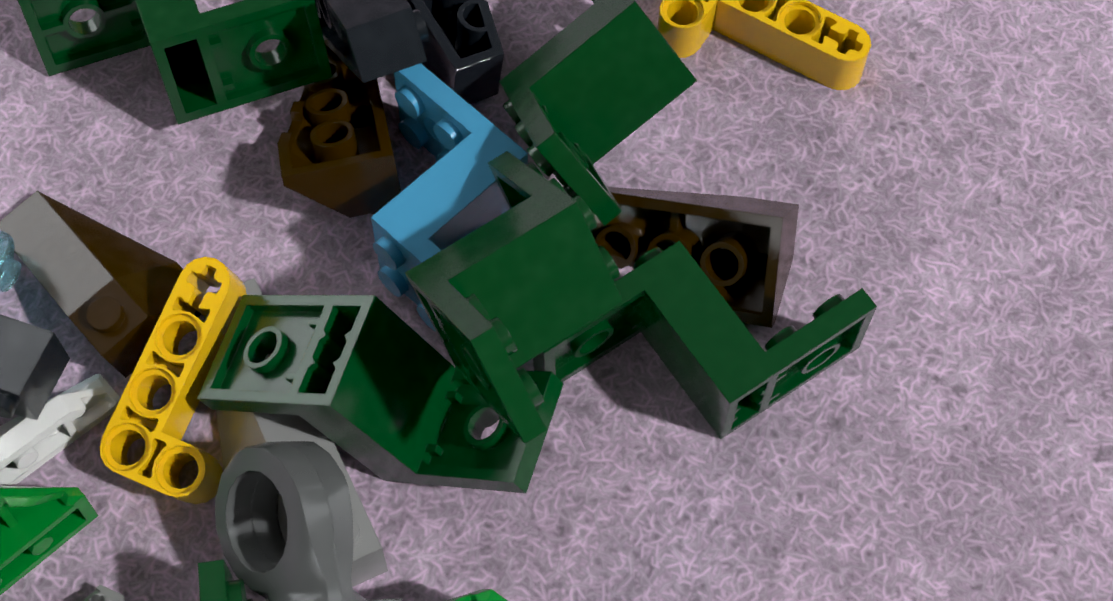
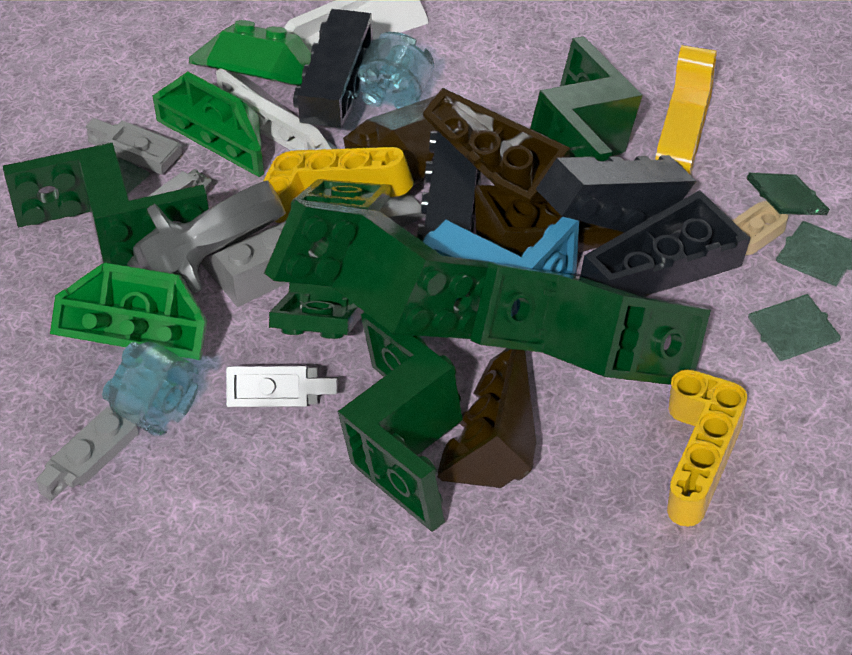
camera: 85 degrees right, 15 degrees down
(245, 119) = (498, 147): none -> dark brown wedge
(247, 222) = (451, 187): none -> black wedge
(585, 515) = (276, 386): none -> hinge

